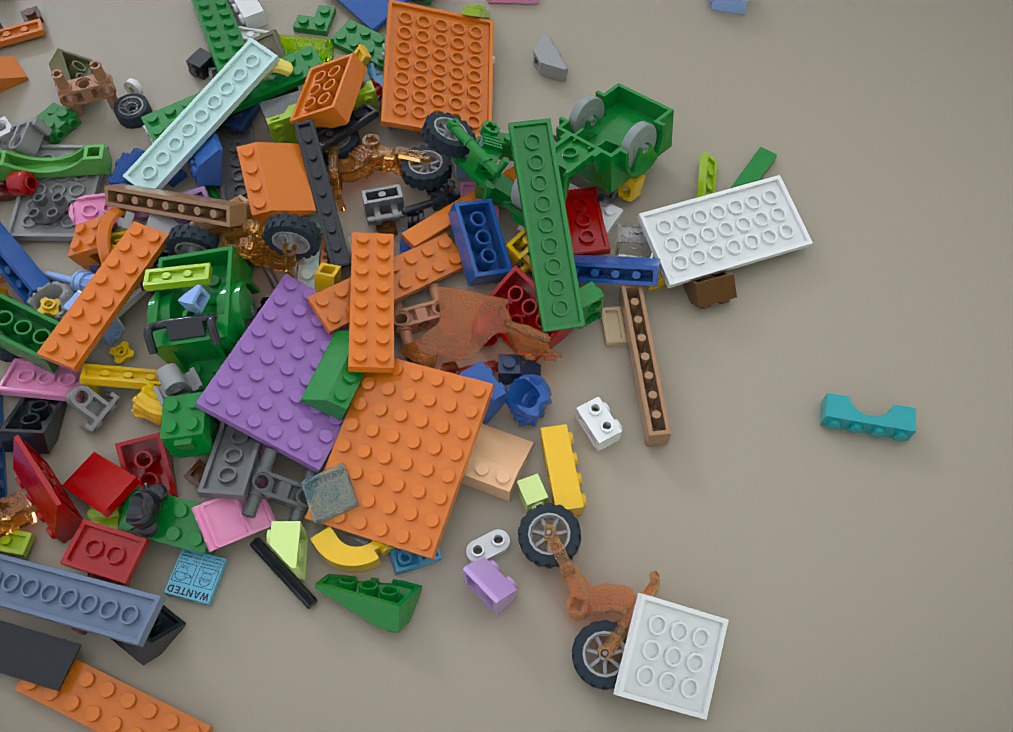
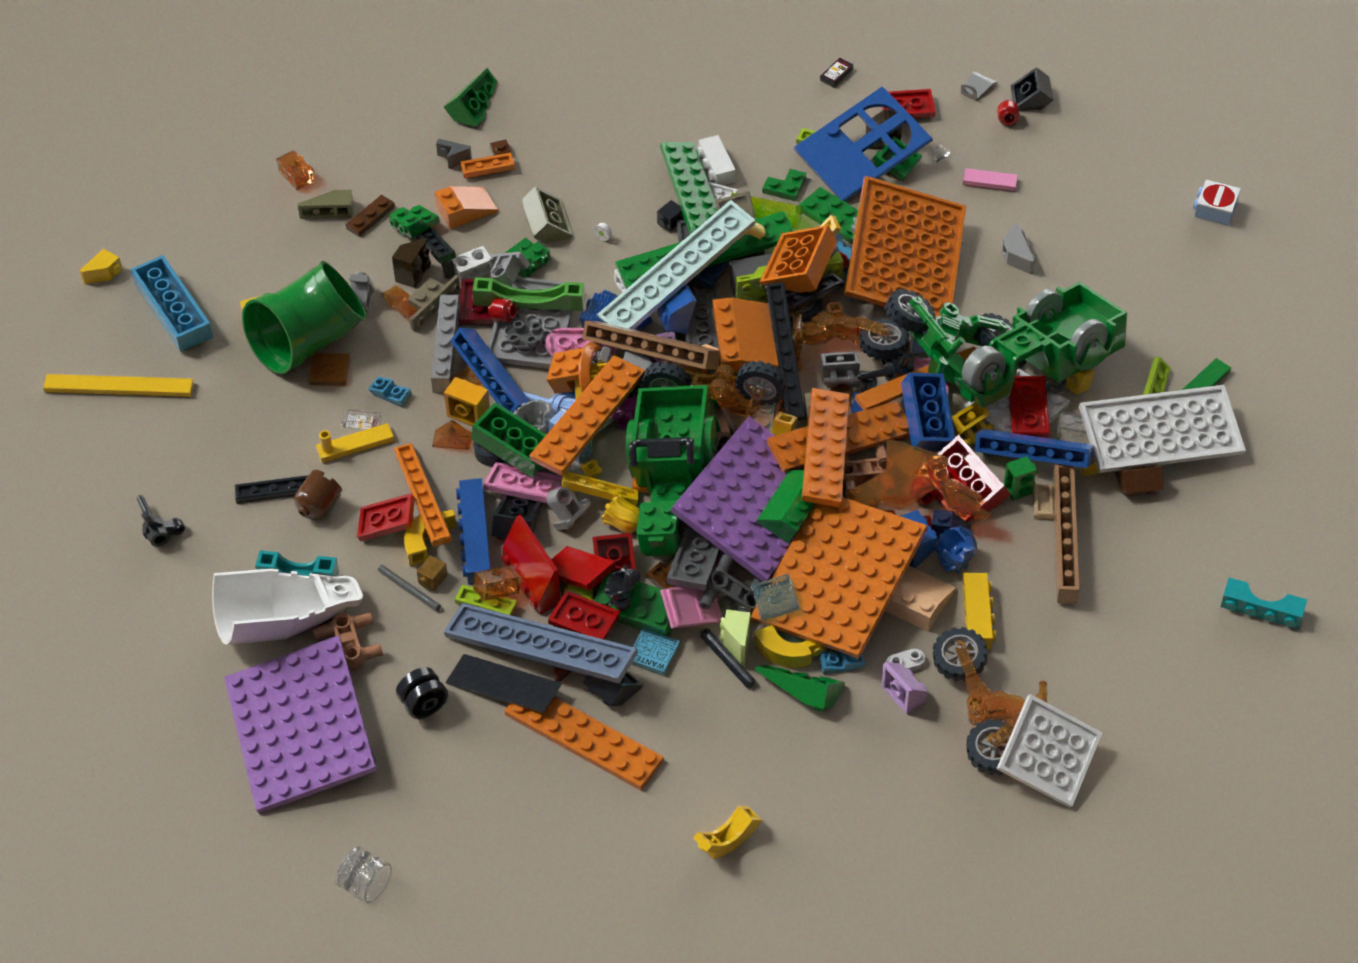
camera: 10 degrees right, 10 degrees down
(52, 310) = (532, 419): yellow plate -> none
(86, 88) = (564, 228): nougat piece -> none
(130, 110) = (602, 254): black wheel -> none
(175, 382) = (646, 491): light grey pin -> none
(177, 277) = (657, 405): lime plate -> none
(195, 299) = (674, 425): light blue slope -> none
(476, 10) = (950, 193): lime plate -> none
(532, 492) = (948, 619): yellowish green brick -> none
(546, 225) = (990, 400): green plate -> none
(598, 423) = (1016, 578): white brick -> none

